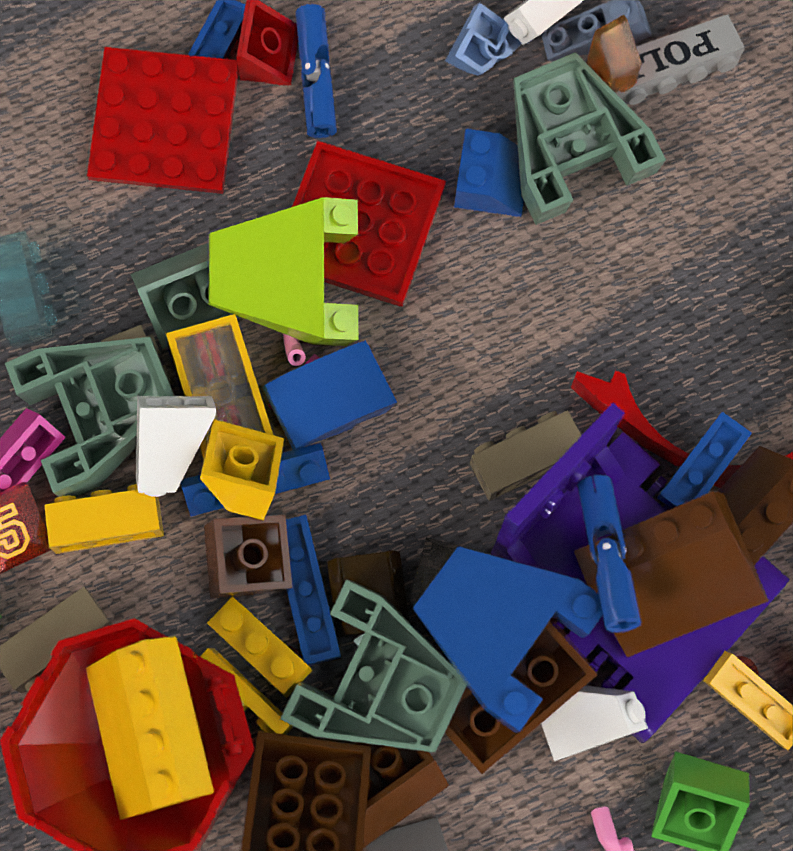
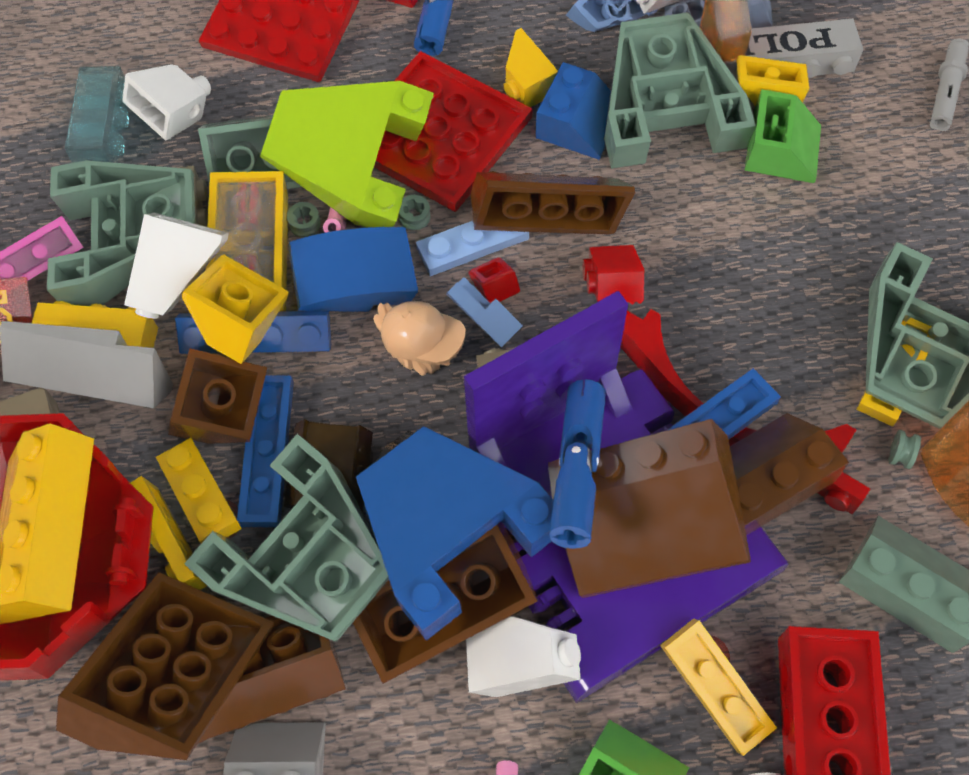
camera: 20 degrees right, 10 degrees down
(84, 254) = (166, 98): none -> white torso
(114, 558) = (82, 363): none -> light grey slope
(253, 341) = (301, 210): none -> sand green bush
(366, 307) = (421, 205): none -> sand green bush
(412, 445) = (419, 335): none -> light nougat hair
(427, 333) = (463, 245): none -> light blue plate
(430, 140) = (527, 71): none -> yellow slope
(460, 369) = (495, 280): none -> red slope
(464, 409) = (489, 316): none -> medium blue slope
(493, 282) = (549, 203): none -> reddish brown slope
(574, 344) = (614, 270): none -> red brick
(670, 106) = (771, 75): none -> yellow slope
(693, 160) = (784, 138): none -> bright green slope

